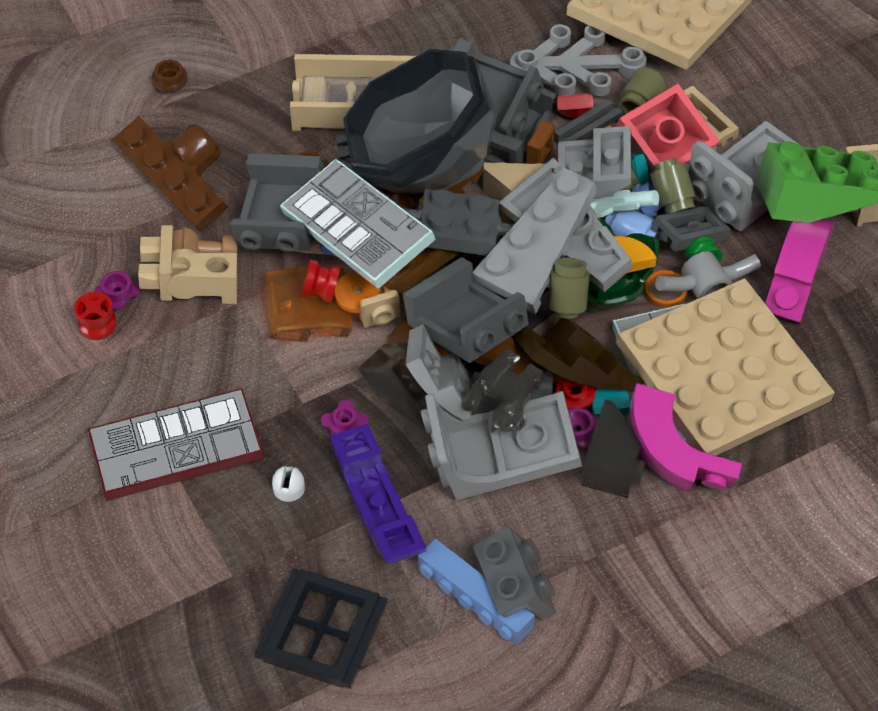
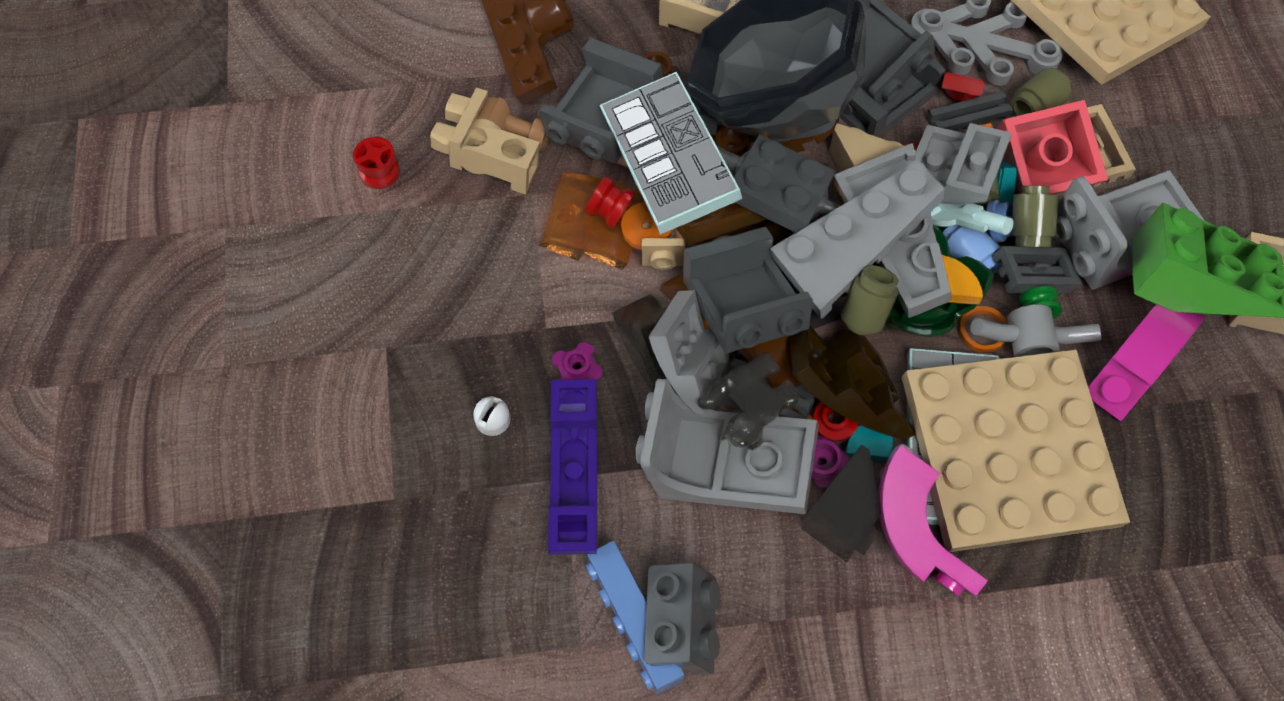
camera: 20 degrees right, 10 degrees up
(119, 282) = (410, 132): magenta plate -> none
(175, 444) = (396, 330): tile -> none
(357, 640) = (487, 624): black piece -> none
(540, 143) = (908, 120): dark orange tile -> none

